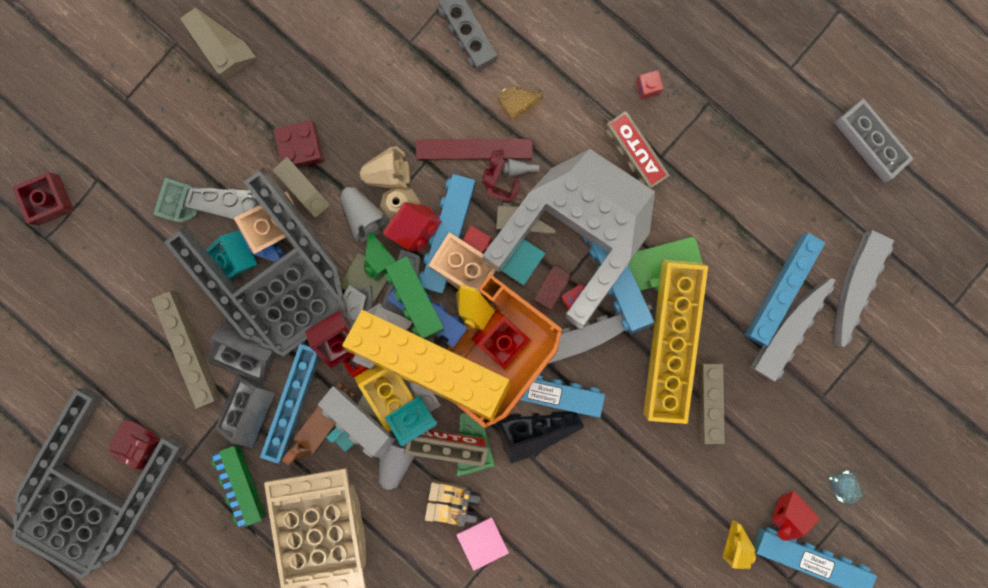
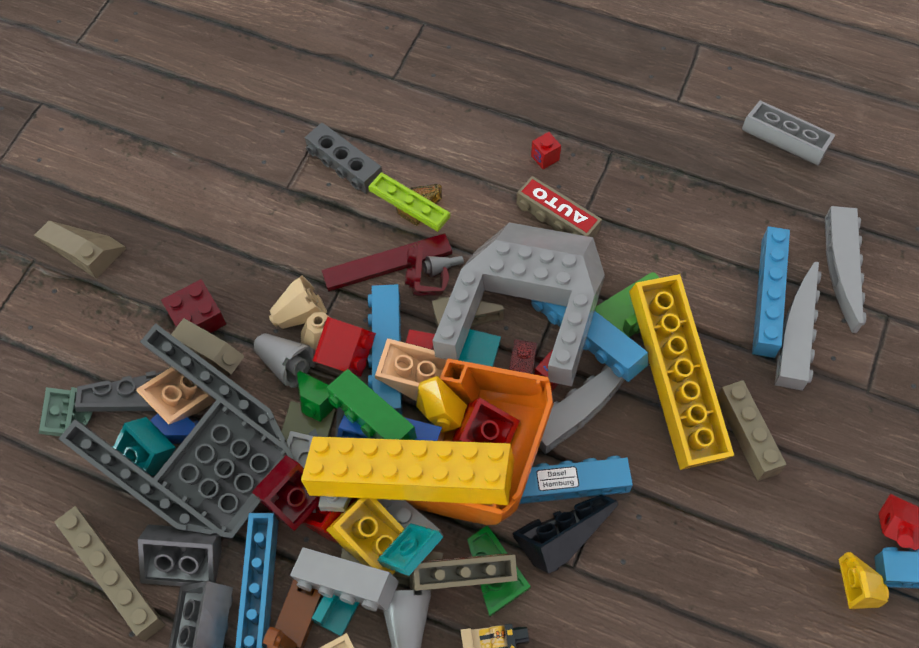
camera: 20 degrees left, 25 degrees down
(509, 102) = (409, 201): none -> lime tile

